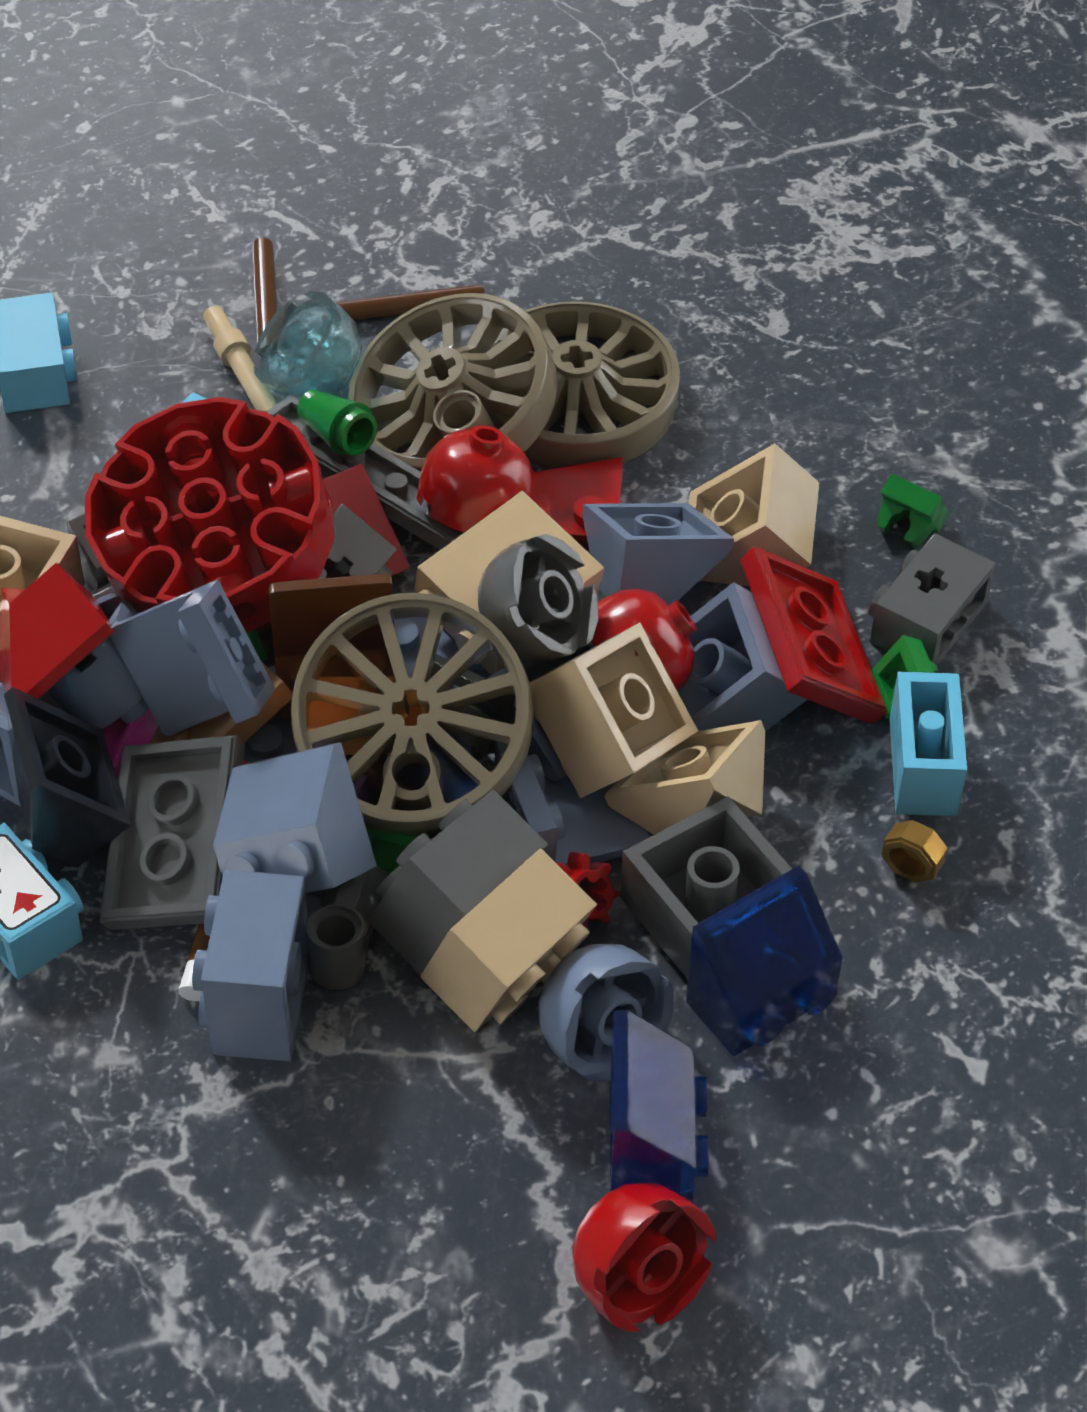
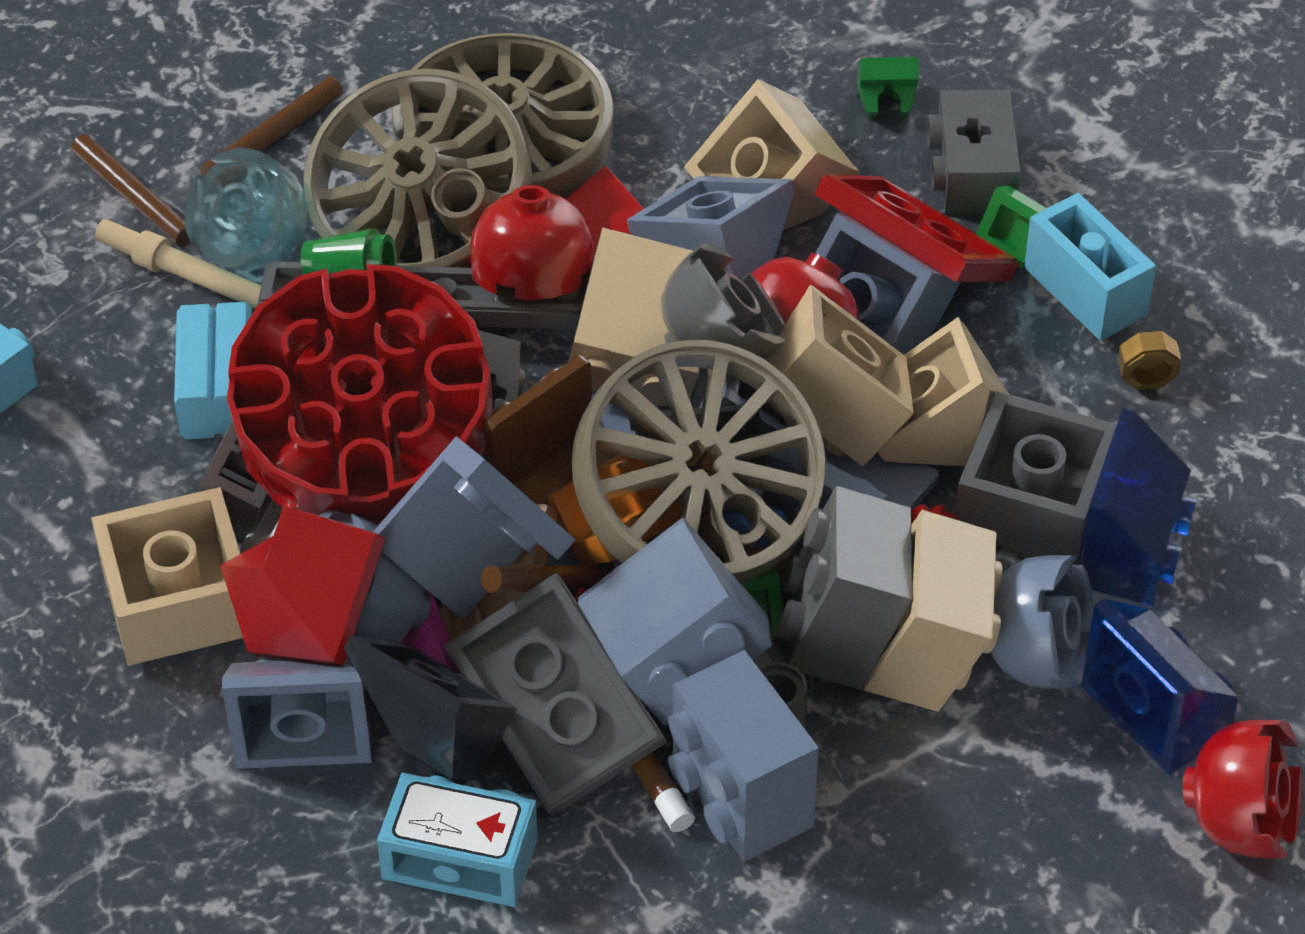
camera: 35 degrees left, 0 degrees up
(211, 725) = (525, 577): none -> reddish brown bar

